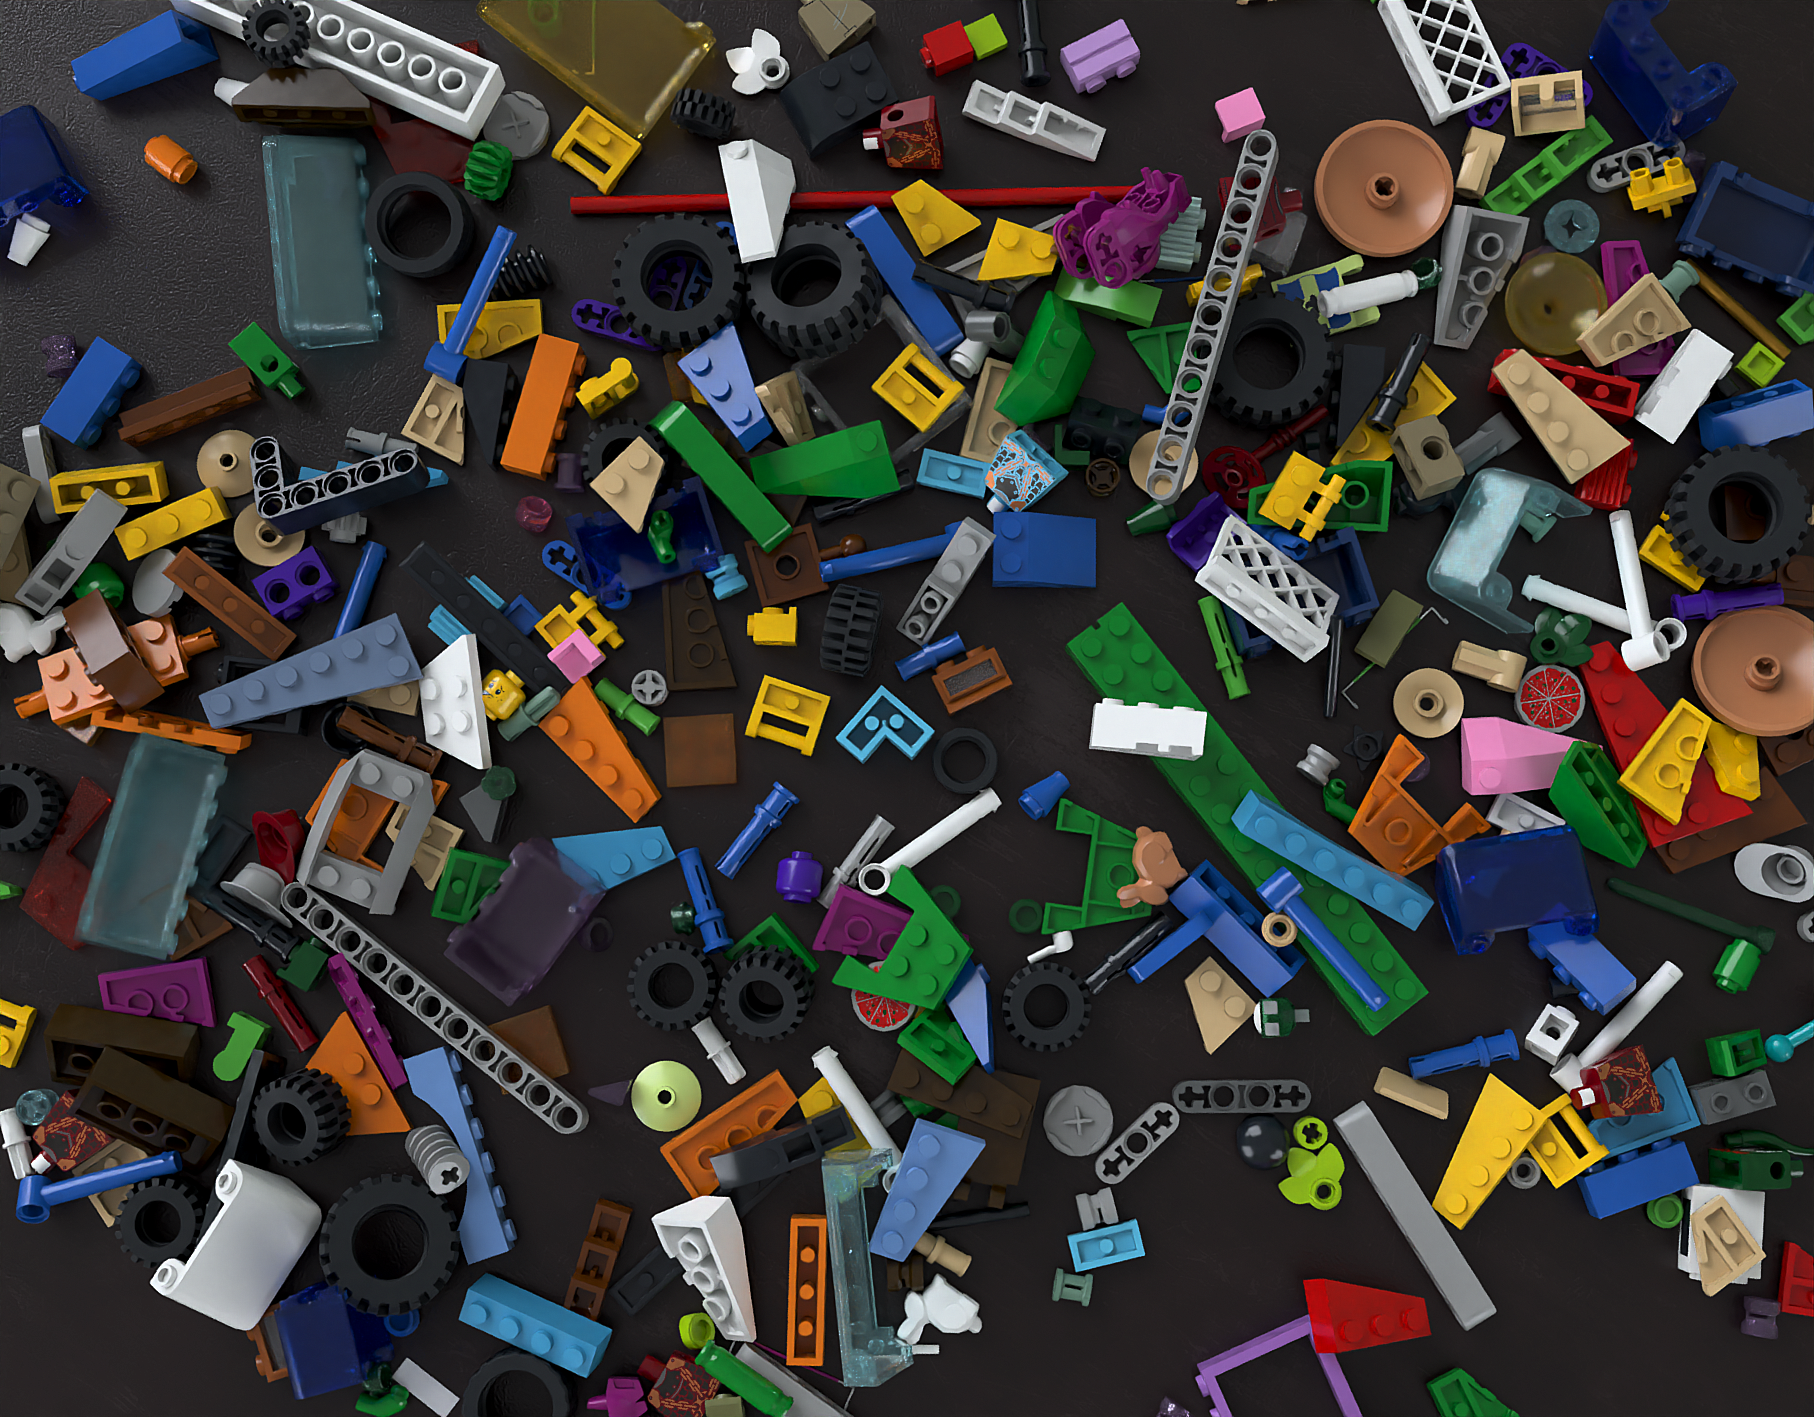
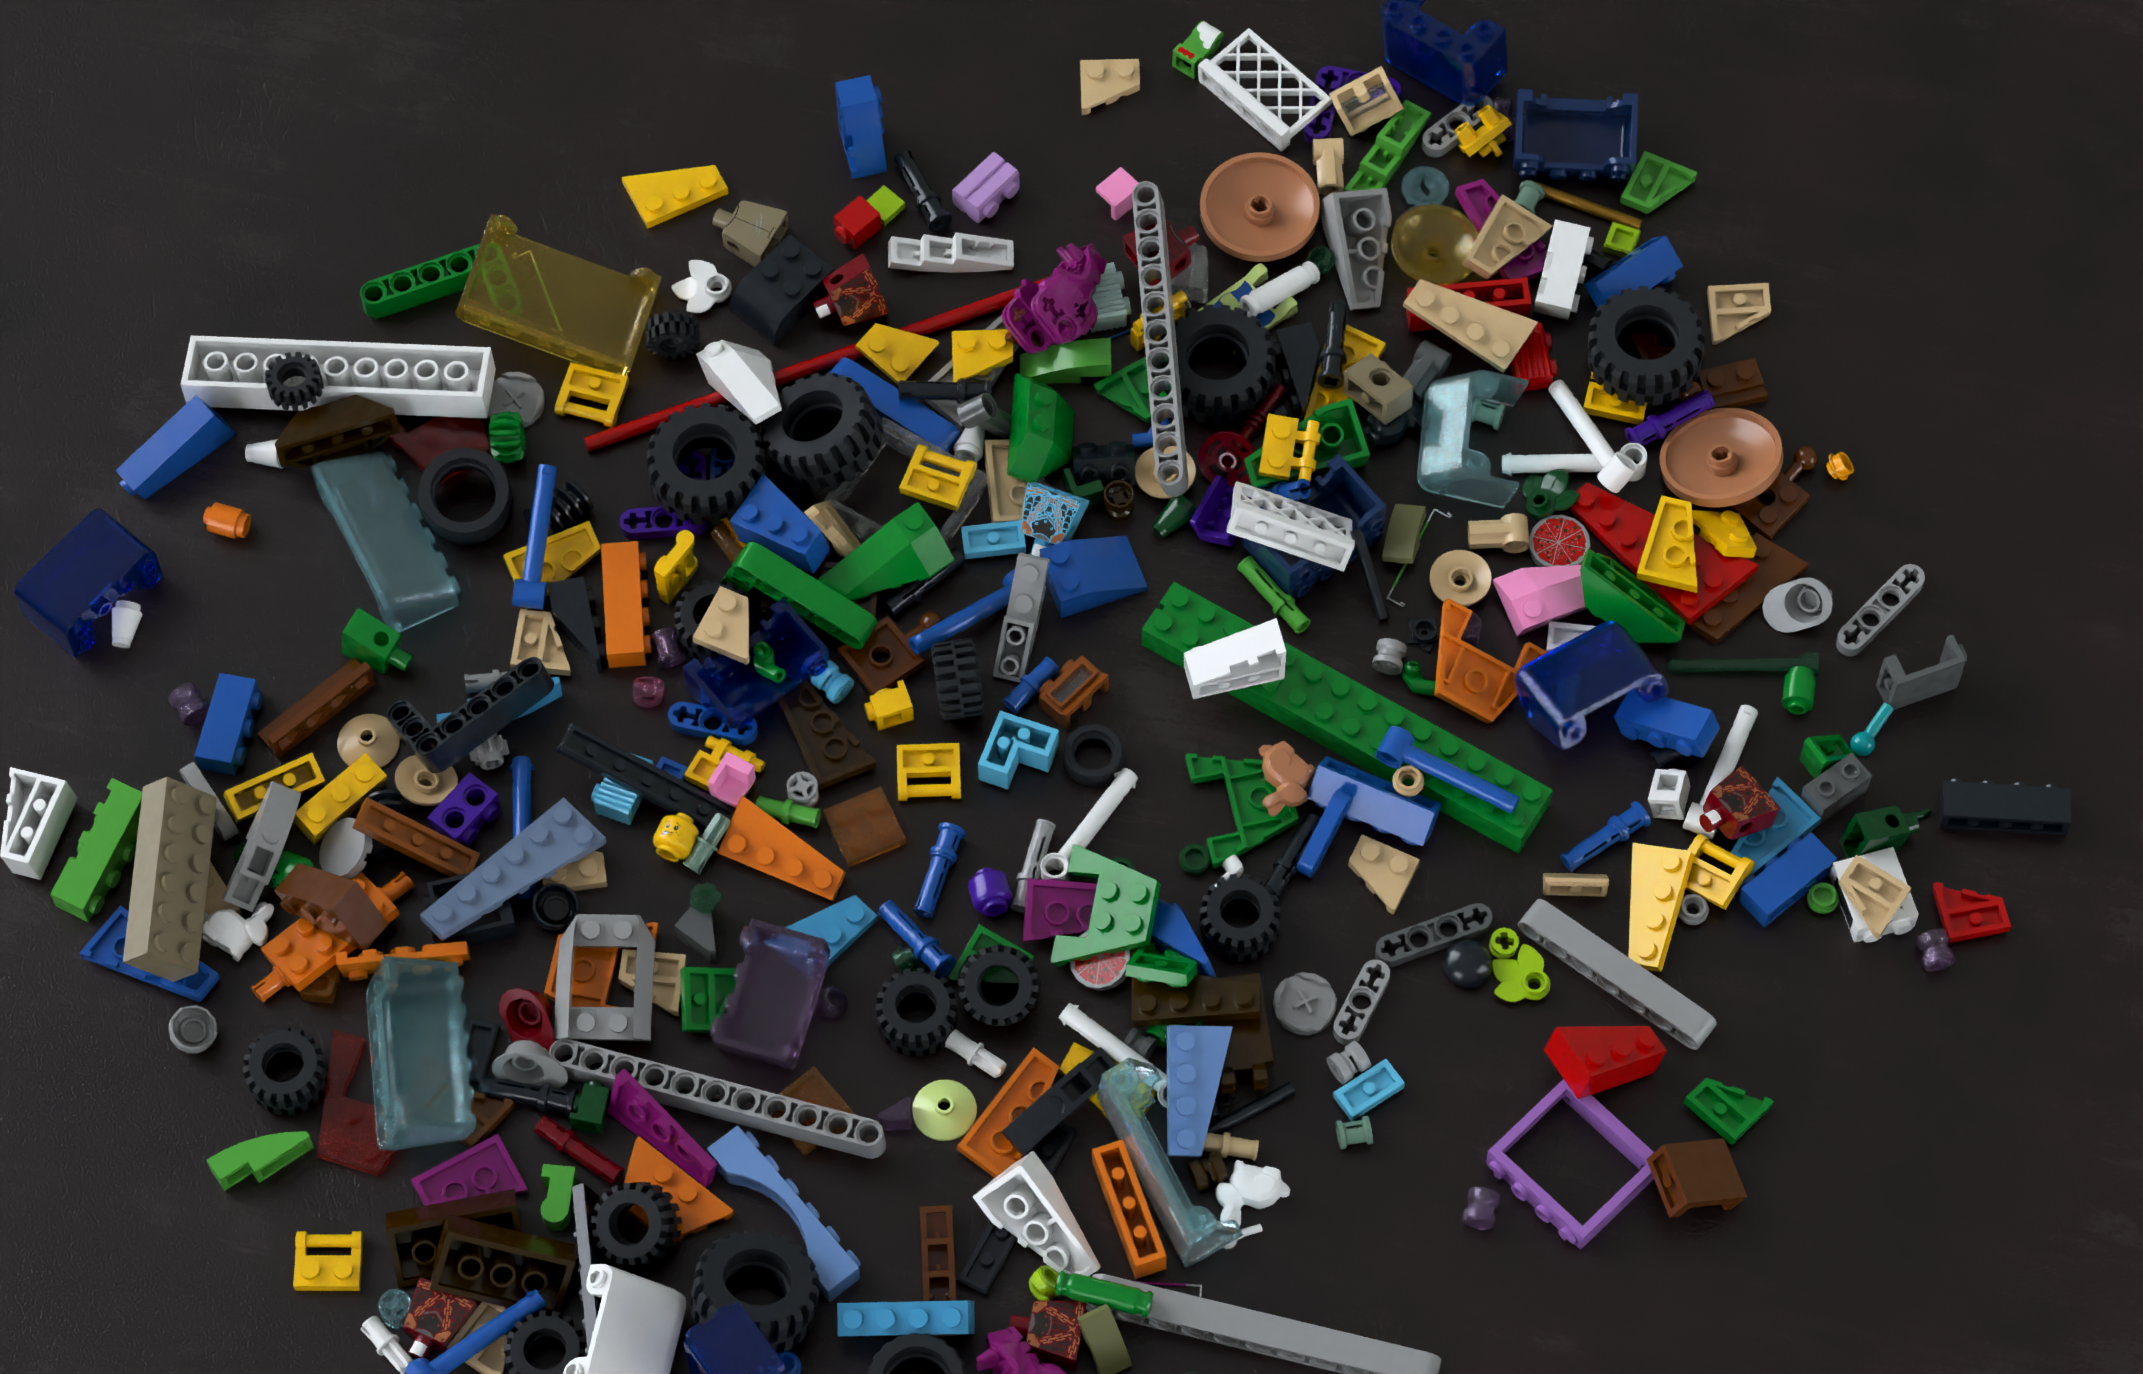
camera: 25 degrees left, 20 degrees down
(404, 748) = (593, 902): reddish brown pin -> none
(437, 1158) = (768, 1212): light grey piece -> none
(454, 704) = (640, 854): white wing -> none
(1042, 796) = (1169, 760): blue cone -> none
(1277, 1017) = (1436, 859): piece -> none
(1304, 846) = (1392, 702): dark azure arch -> none

